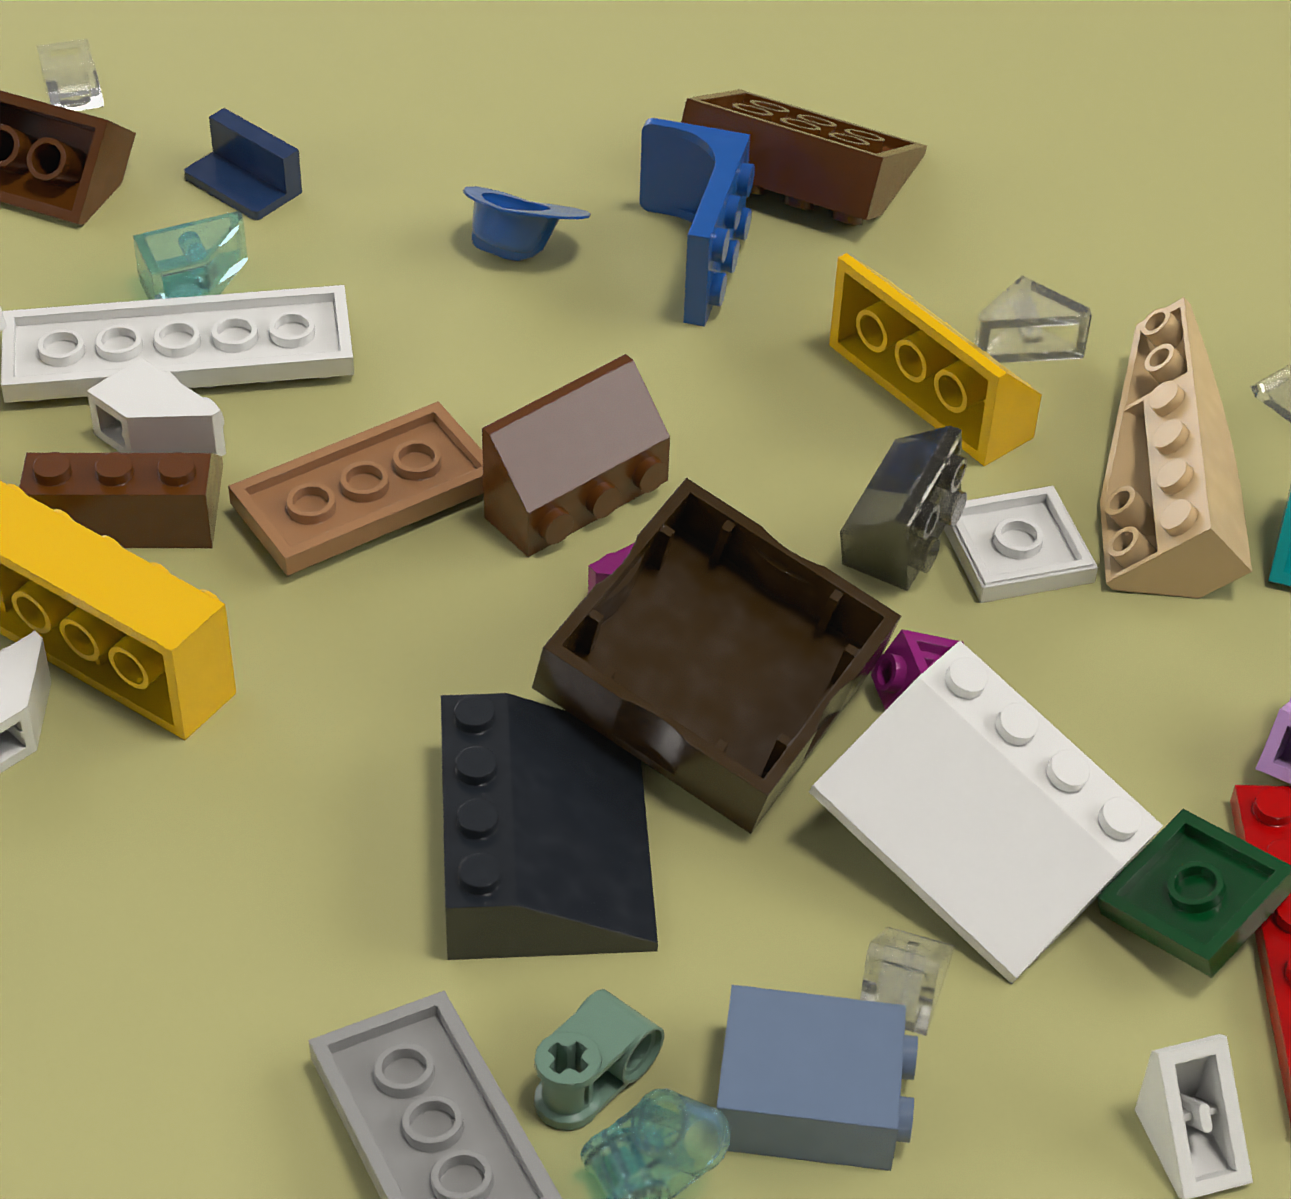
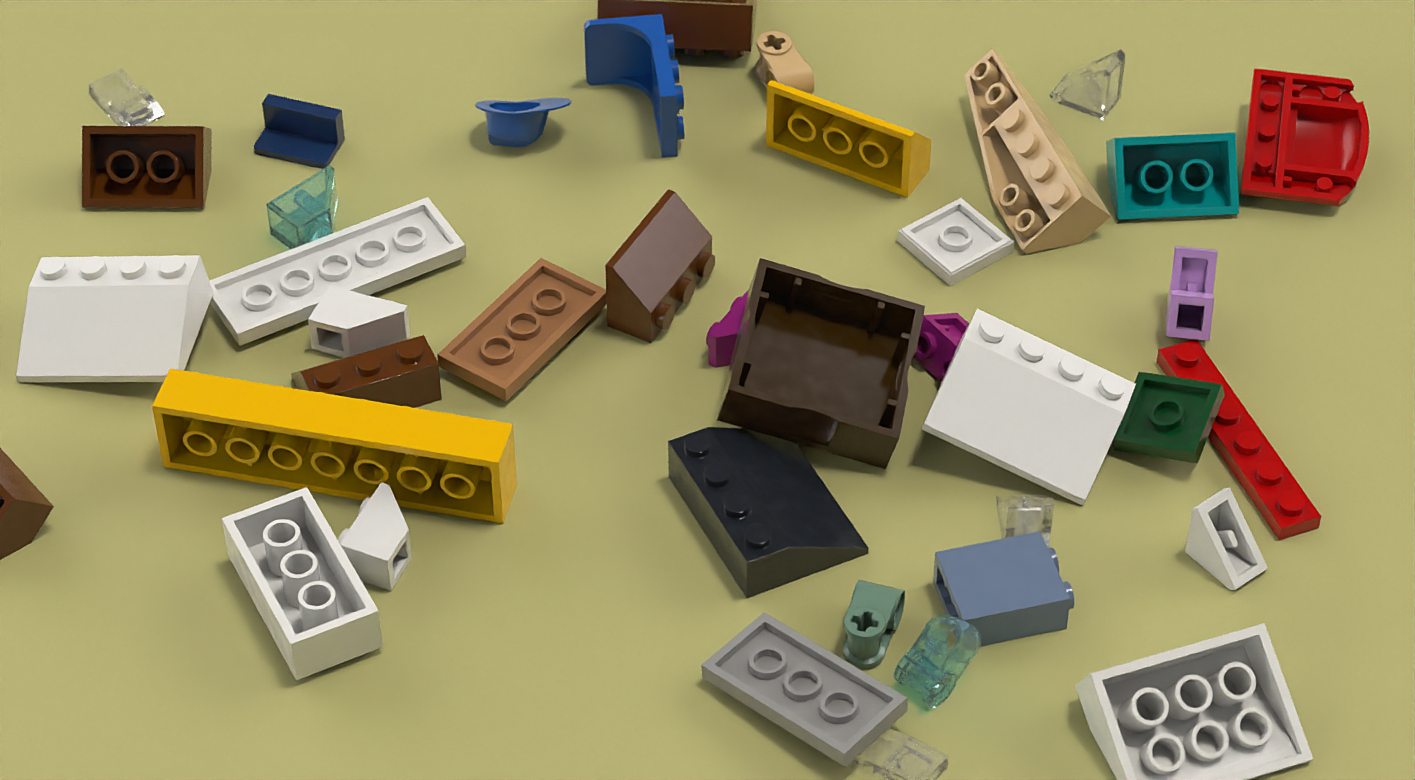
camera: 20 degrees left, 0 degrees up
(898, 246) = (782, 63): none -> tan piece
(907, 508) = (886, 237): clear smoke slope -> none
(1033, 325) = (898, 92): clear slope -> none

